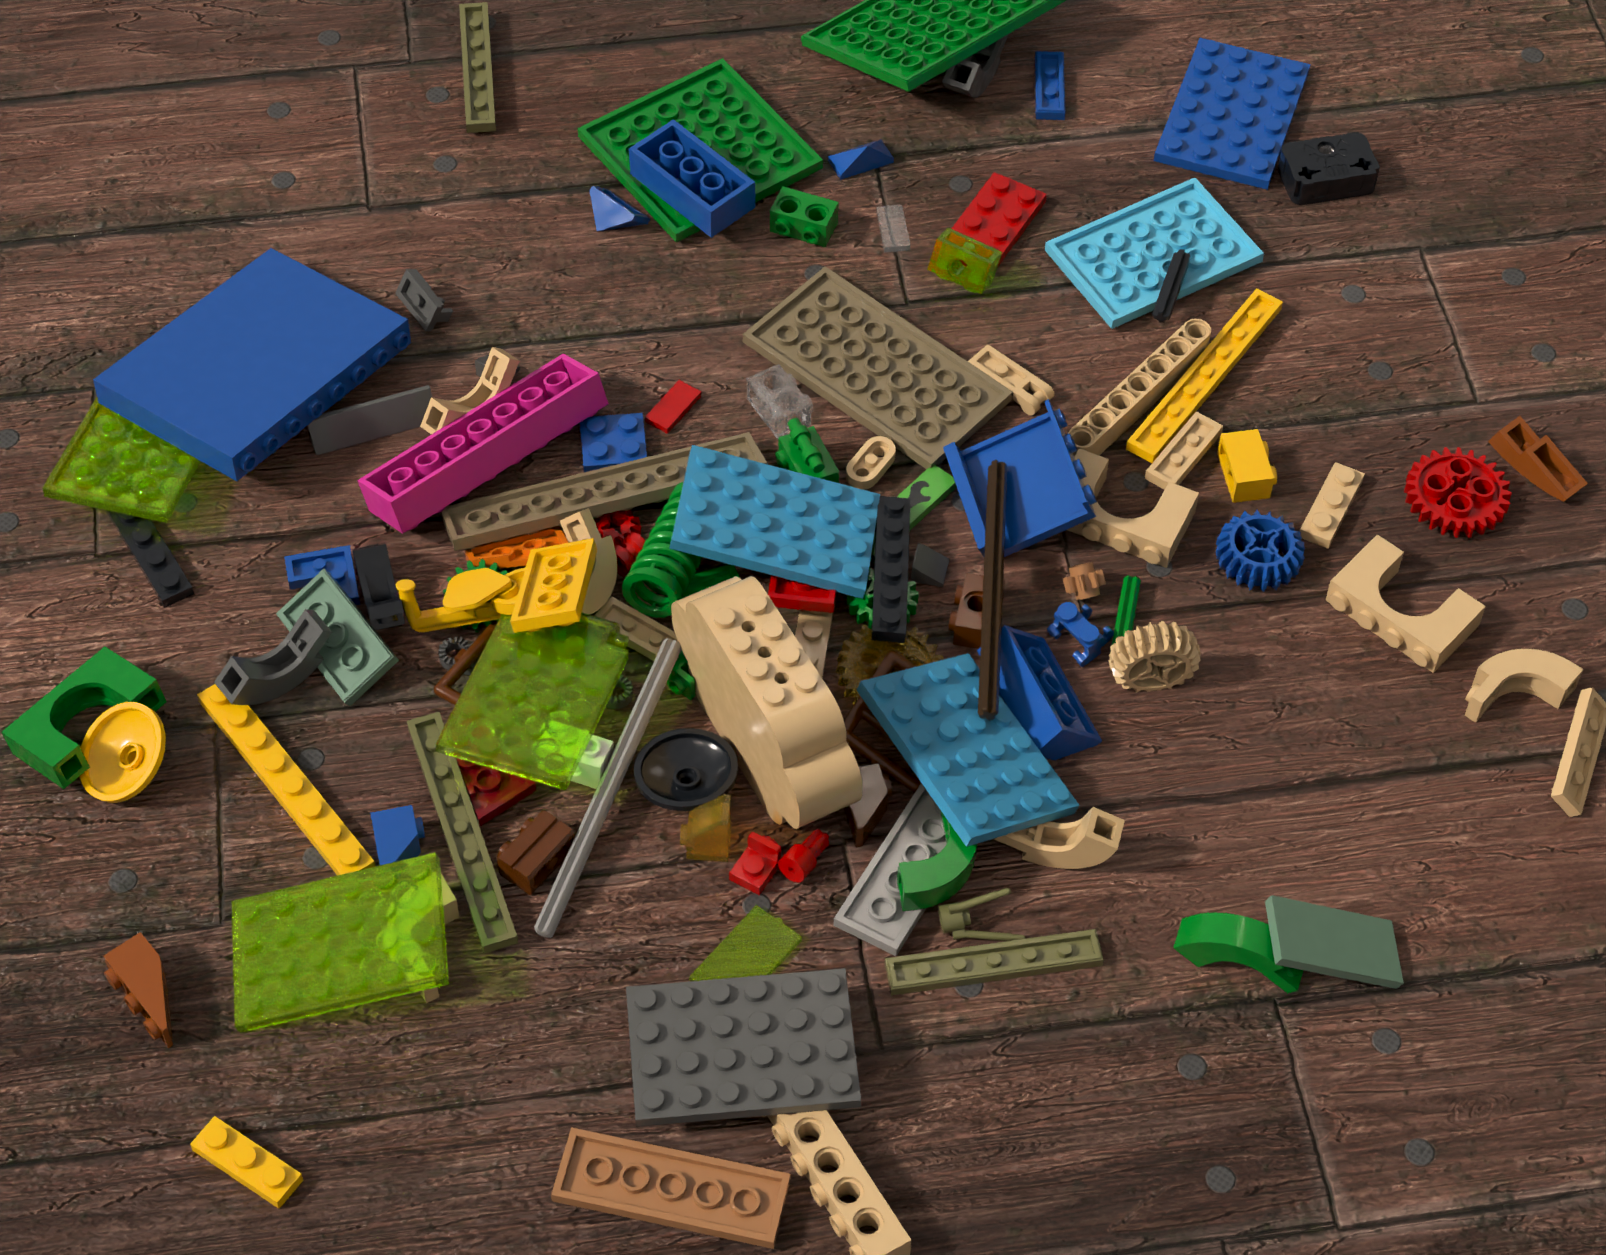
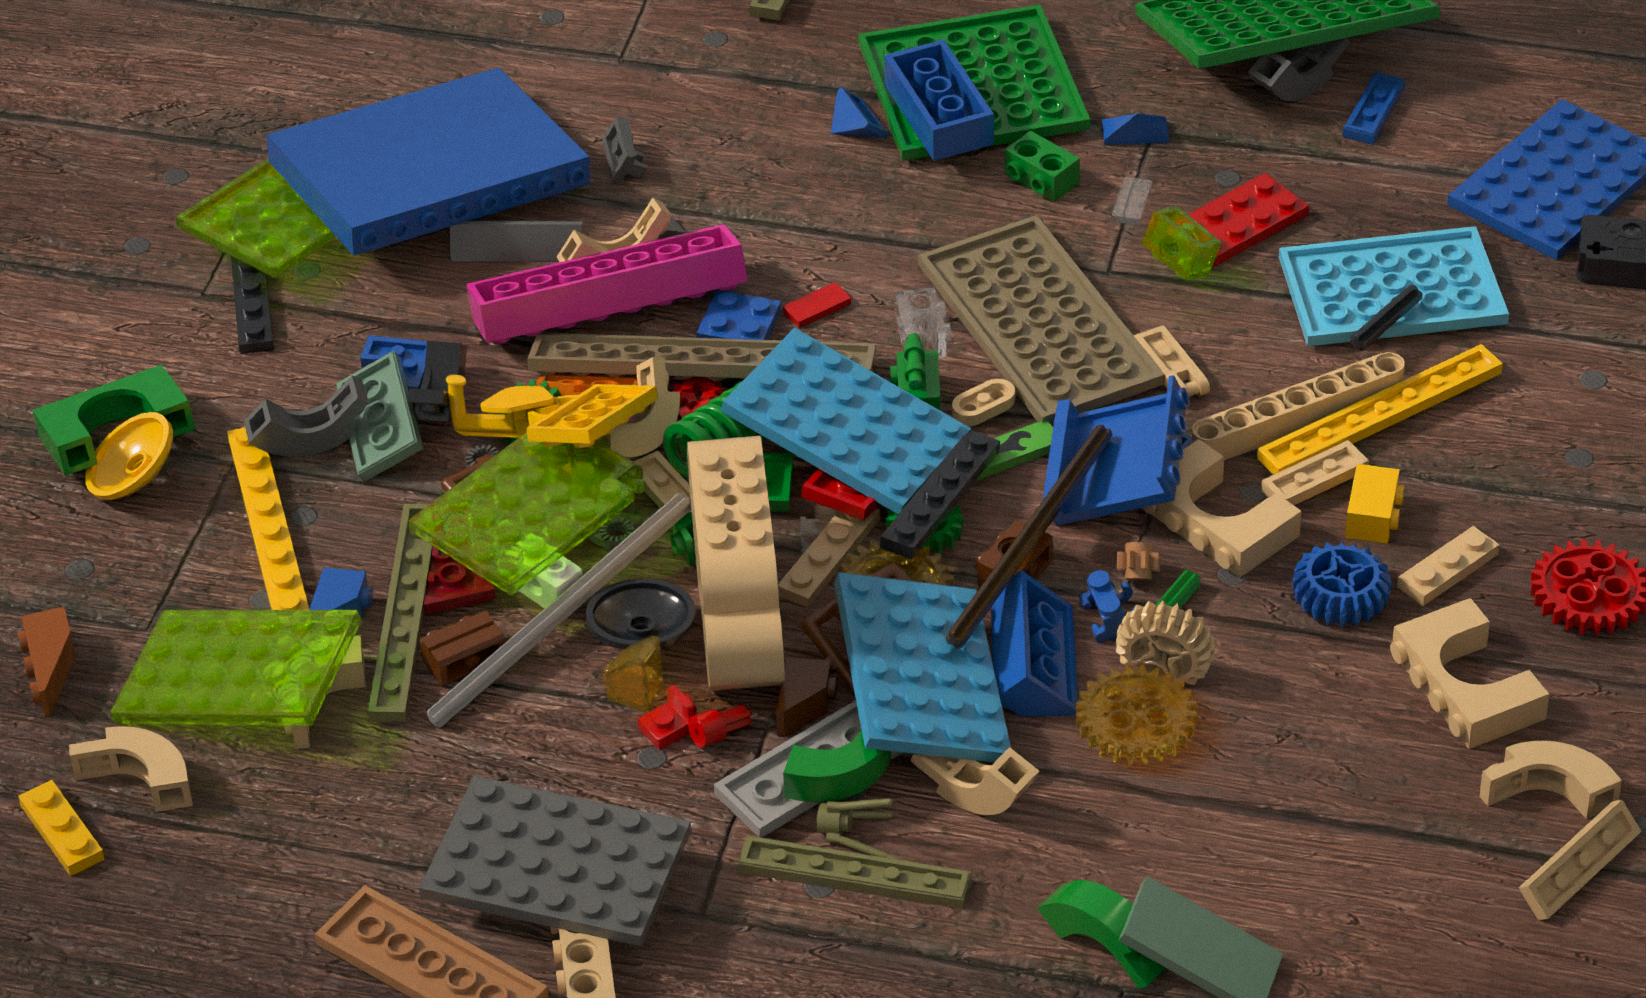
camera: 25 degrees right, 10 degrees down
(296, 1062) = (137, 754): none -> tan arch
(750, 948) = (632, 786): clear neon green piece -> none
(929, 566) = (989, 509): dark grey slope -> none
(1156, 730) = (1136, 714): none -> clear yellow gear

